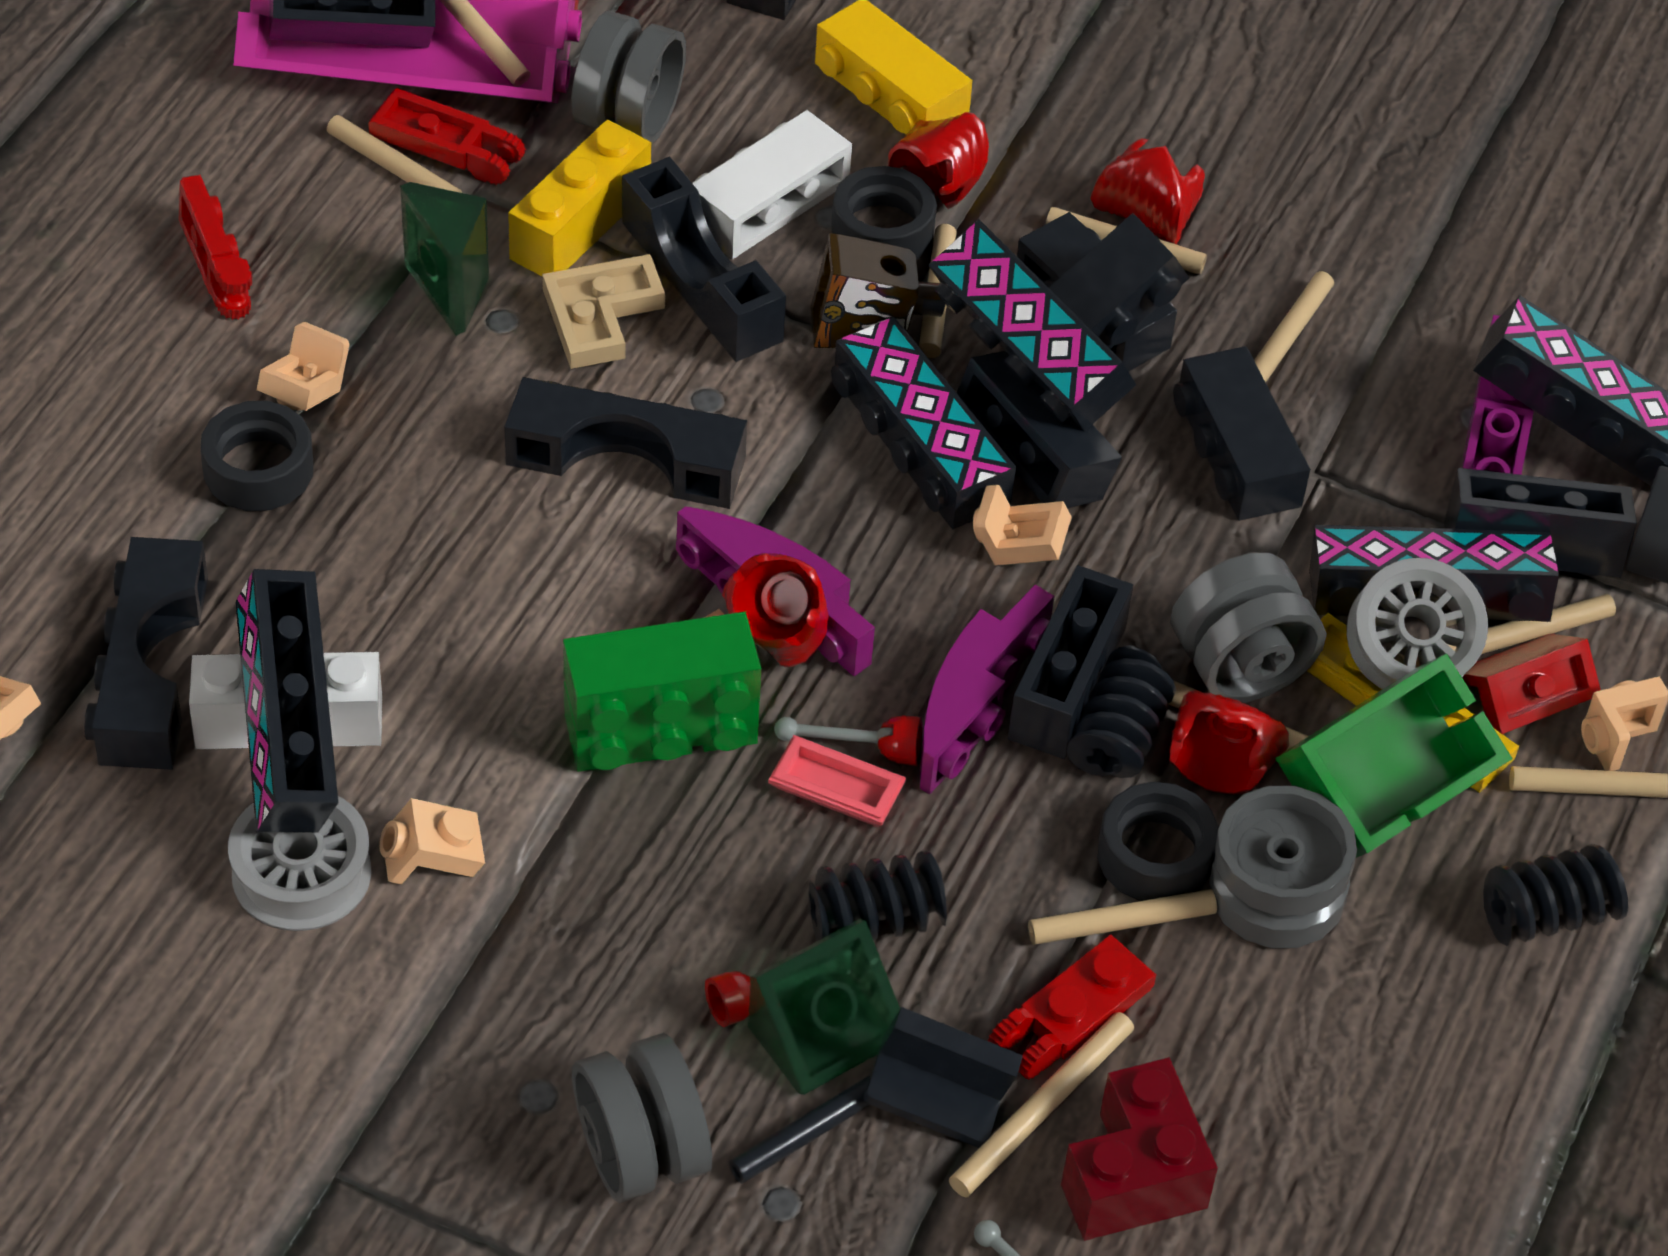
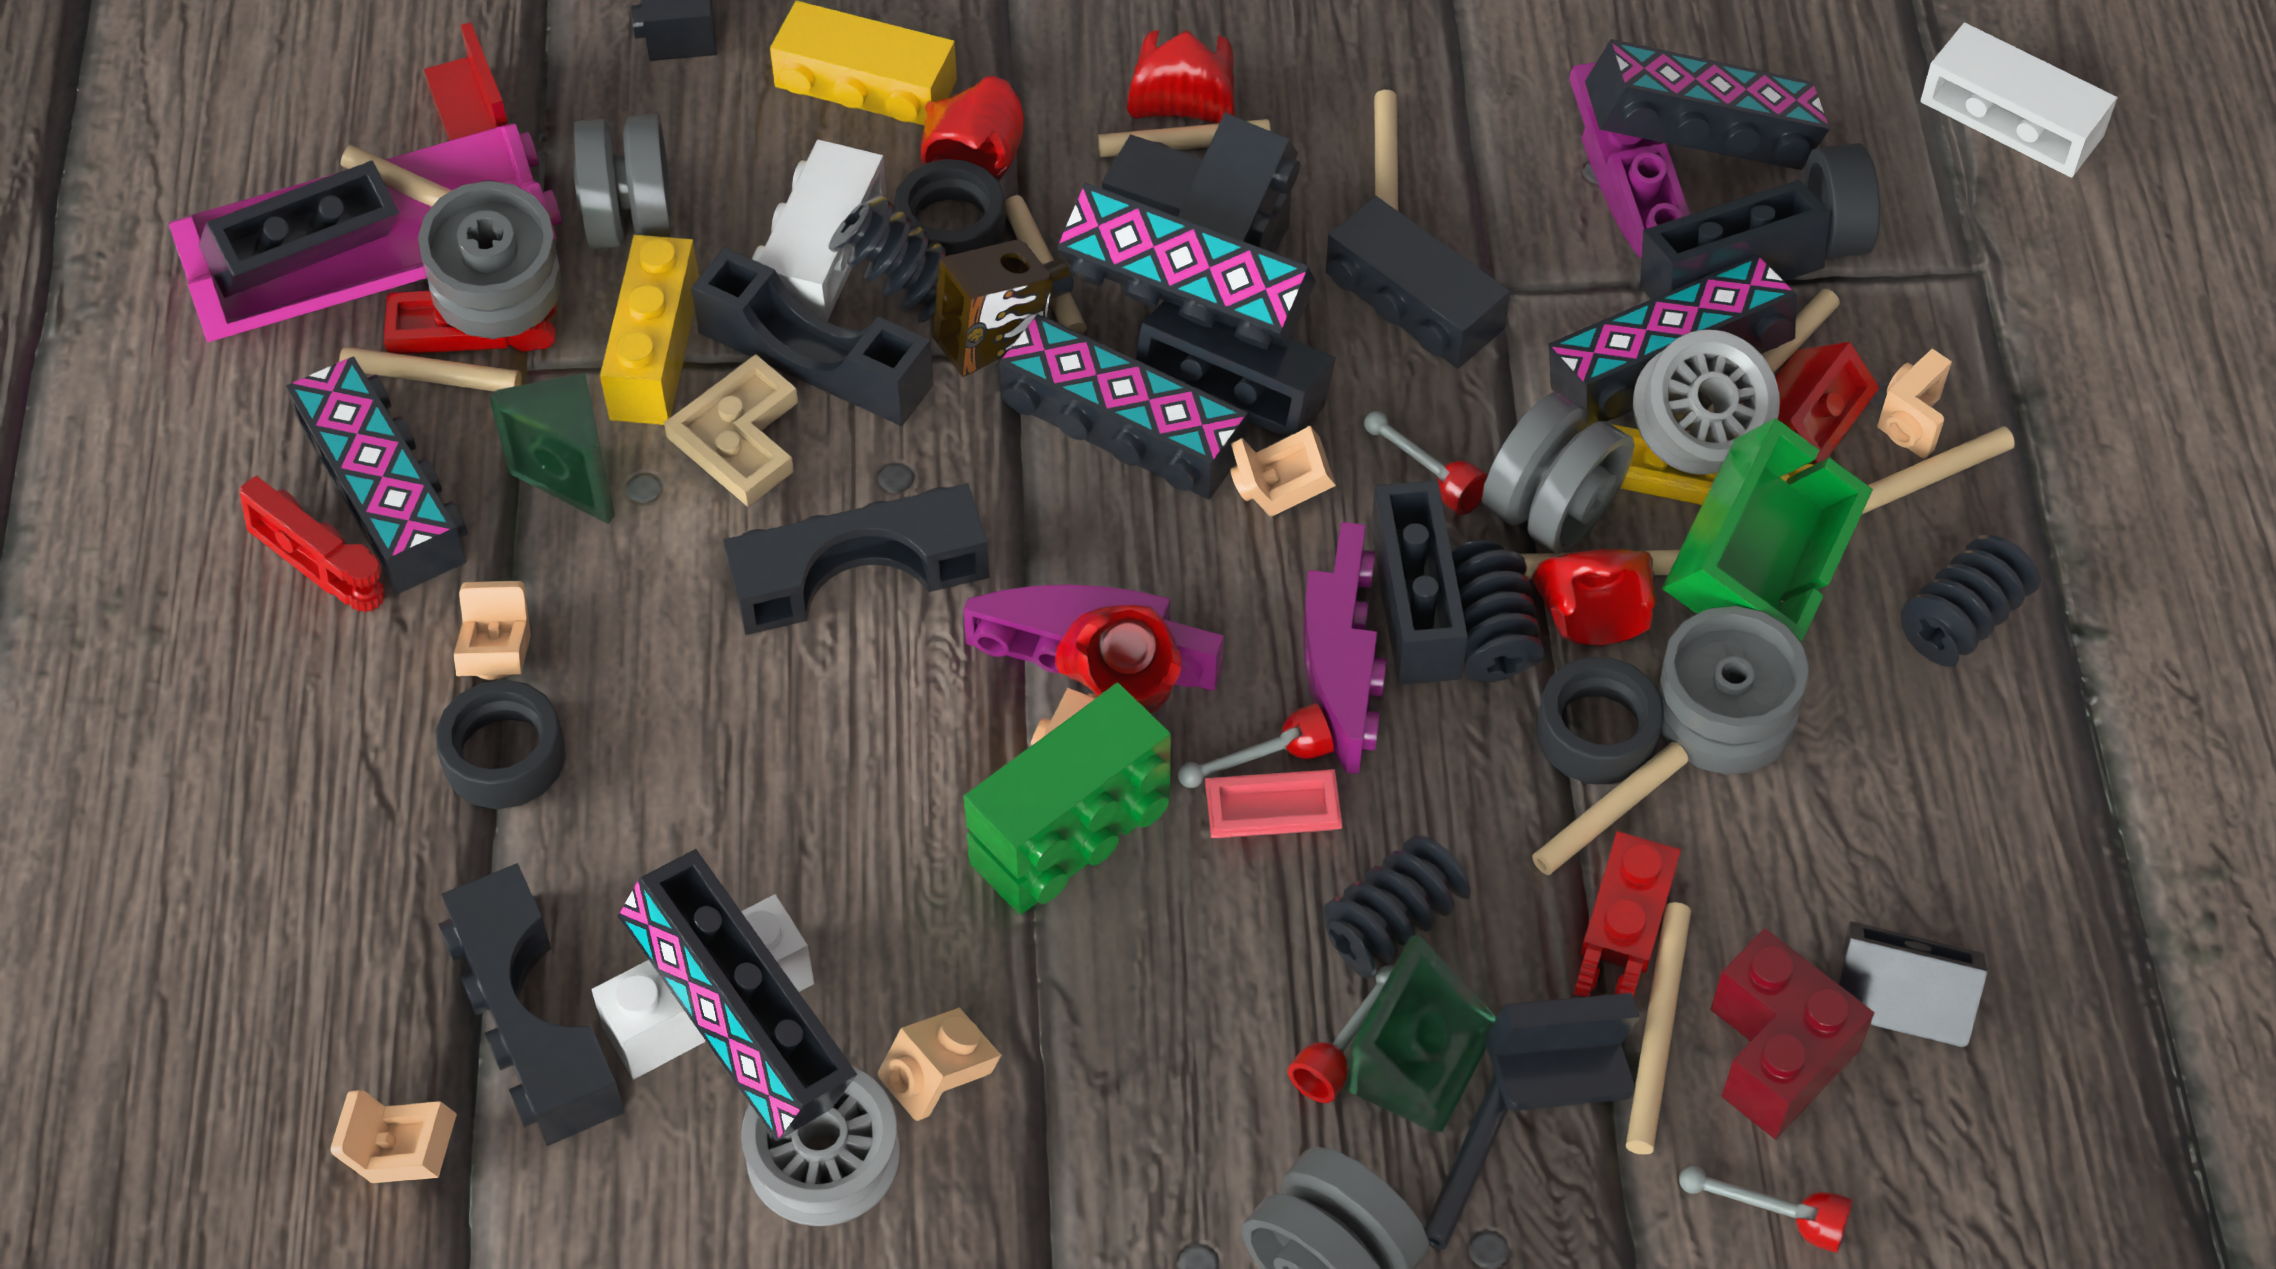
camera: 25 degrees left, 5 degrees up
(297, 218) = (378, 475): none -> black brick
(479, 89) = (490, 259): none -> dark grey wheel
(803, 216) = (894, 250): none -> black piece
(1165, 595) = (1459, 481): none -> hinge
(1283, 1172) = (1914, 982): none -> panel

